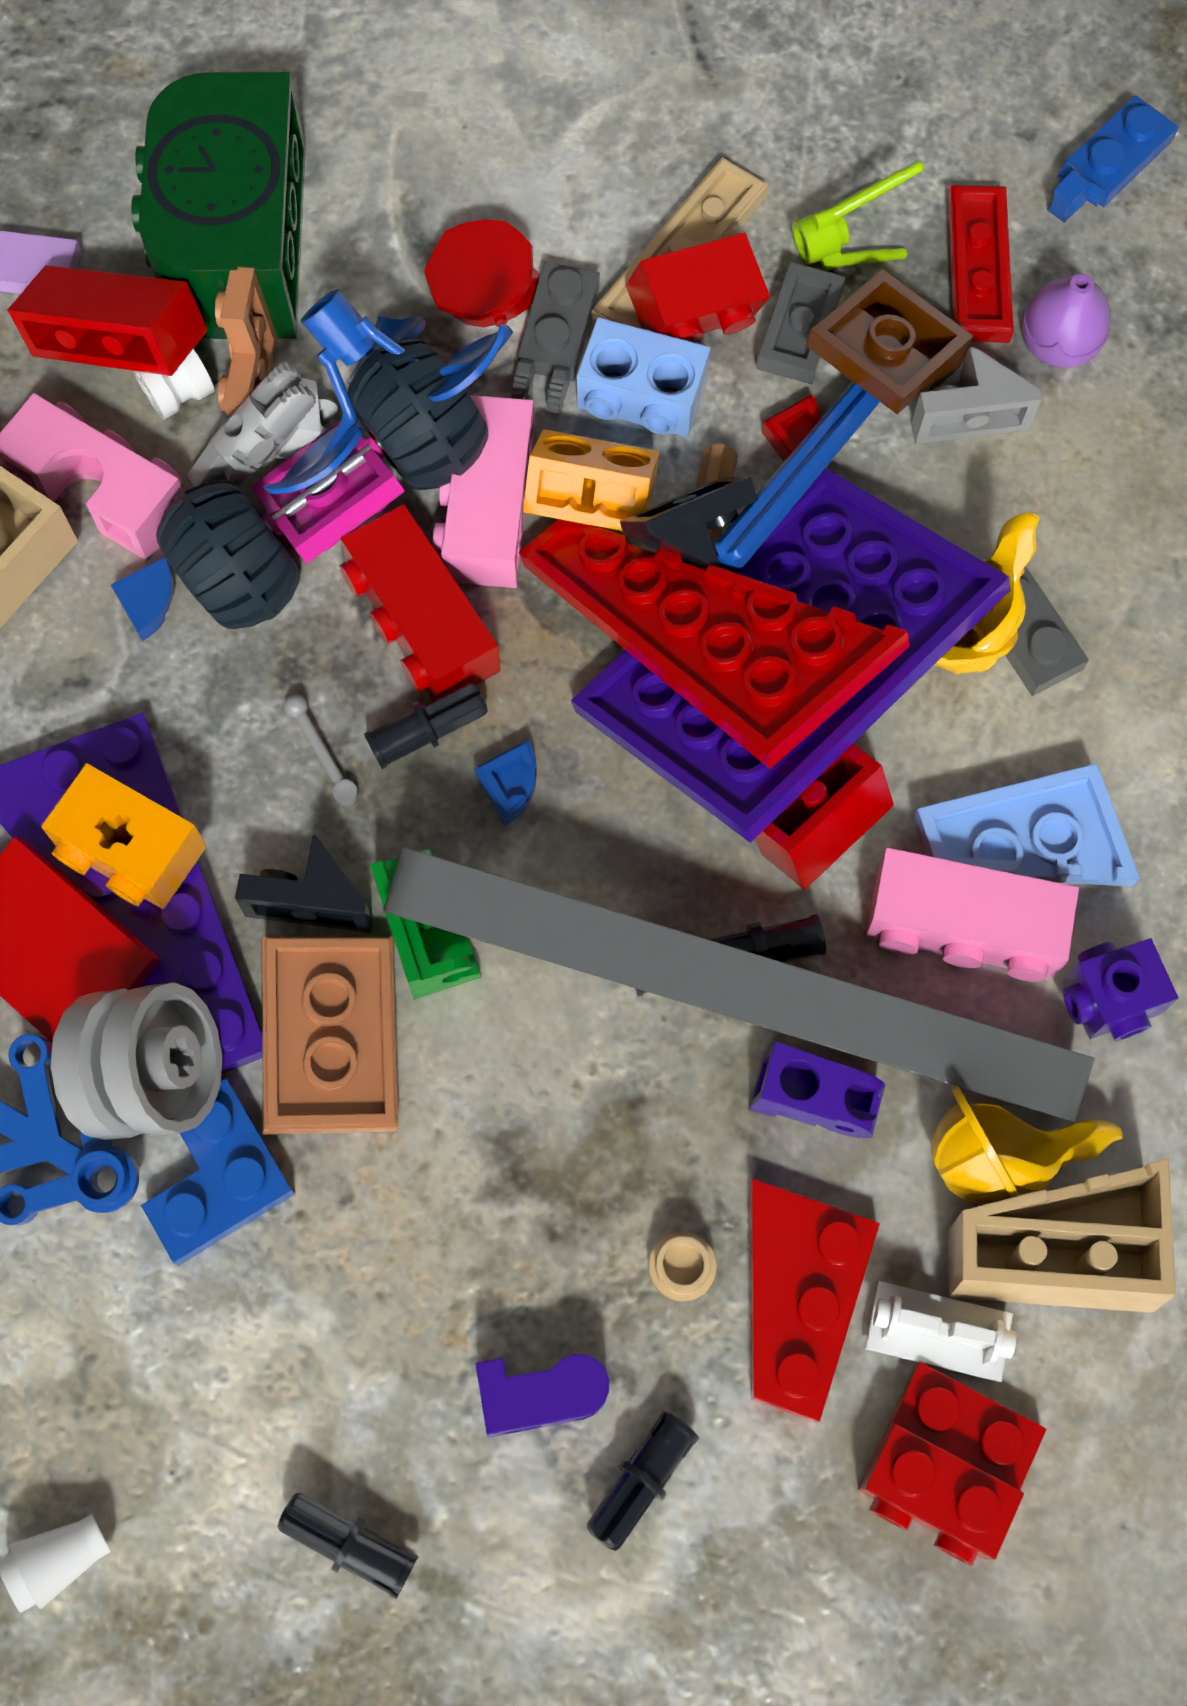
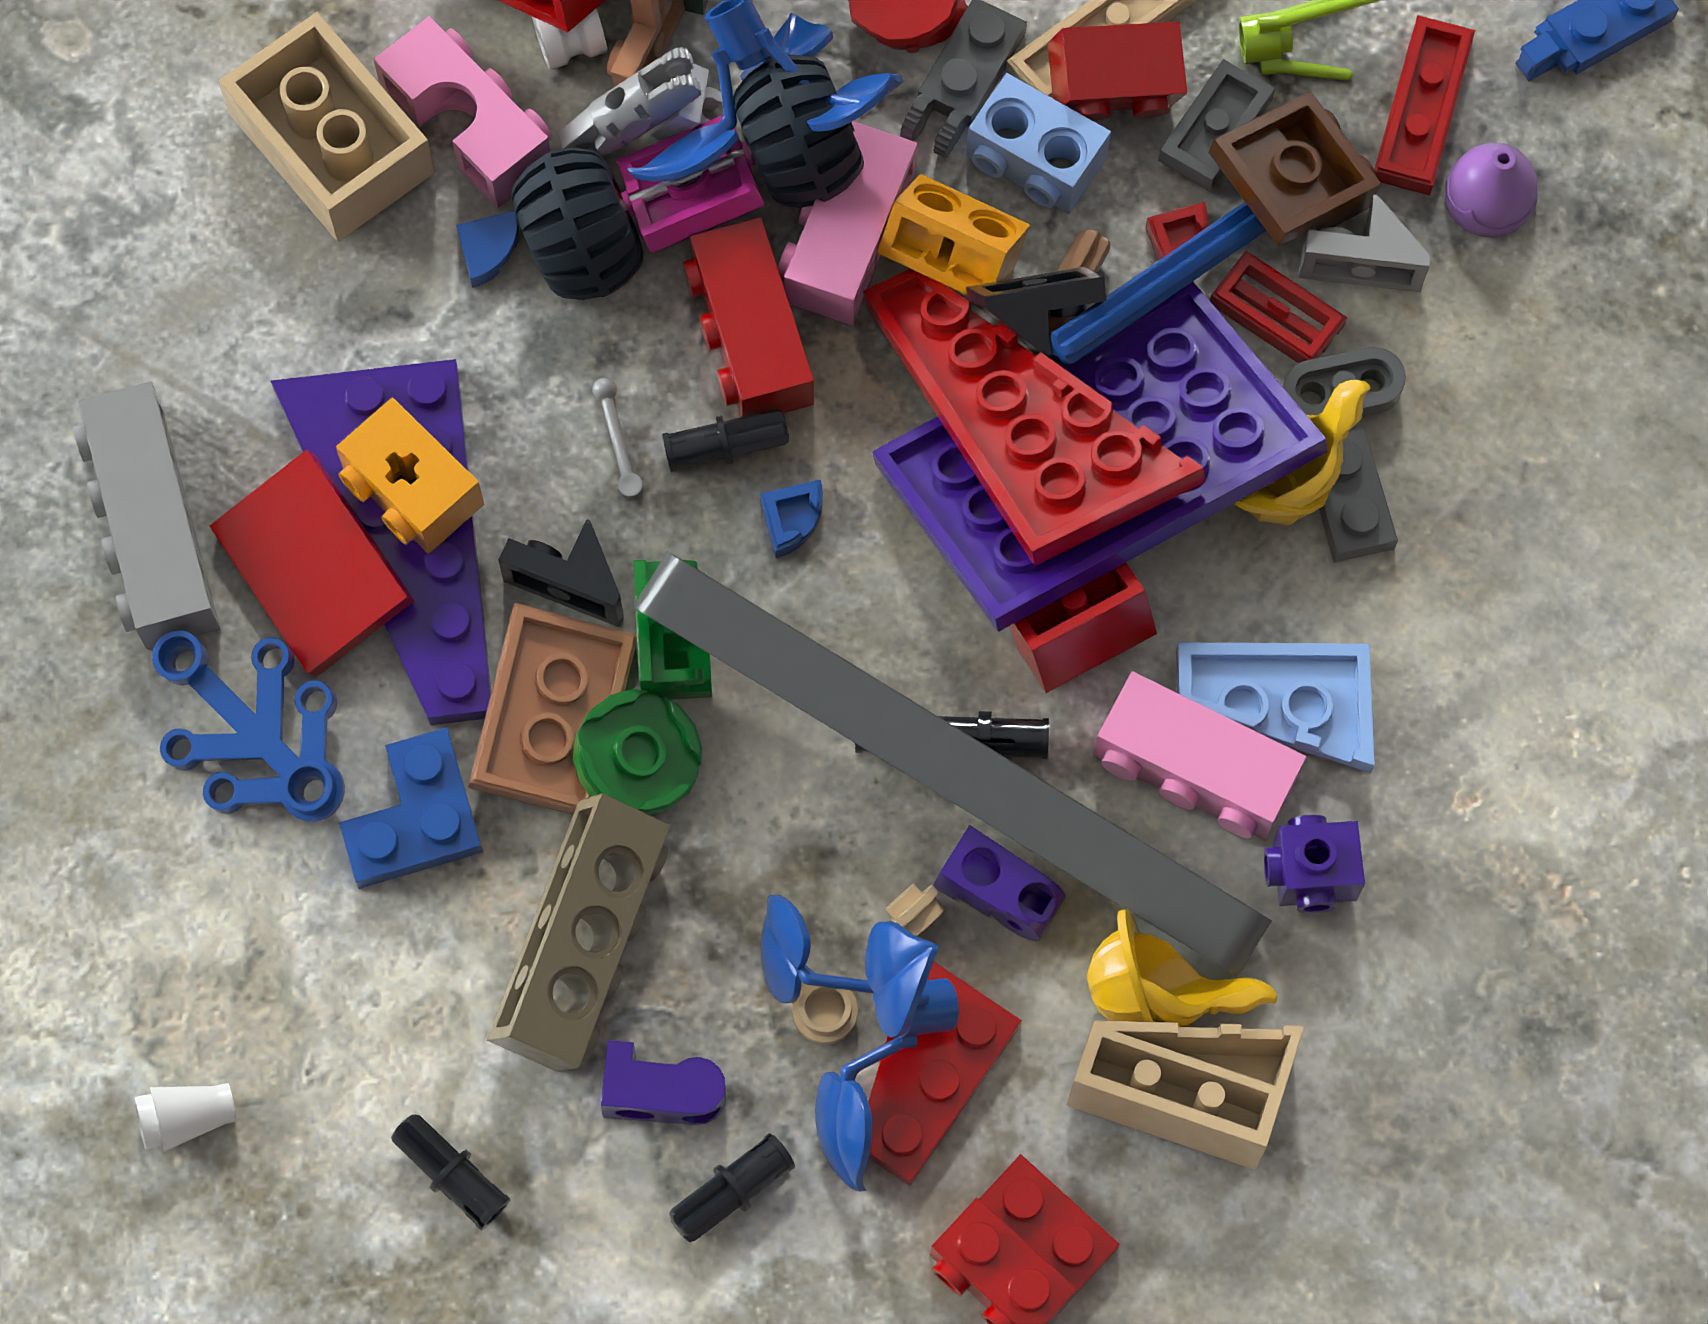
camera: 15 degrees right, 0 degrees up
(137, 1061) = (370, 687): light grey wheel -> none
(384, 1355) = (528, 1016): none -> dark tan brick
(424, 1055) = (638, 751): none -> green tile
(742, 1142) = (915, 909): none -> tan plate
(774, 1241) = (904, 1006): none -> blue plant
(904, 485) = (1266, 328): none -> red tile
(940, 1331) = (1048, 1133): white hinge -> none
(982, 522) = (1327, 372): none -> dark grey plate

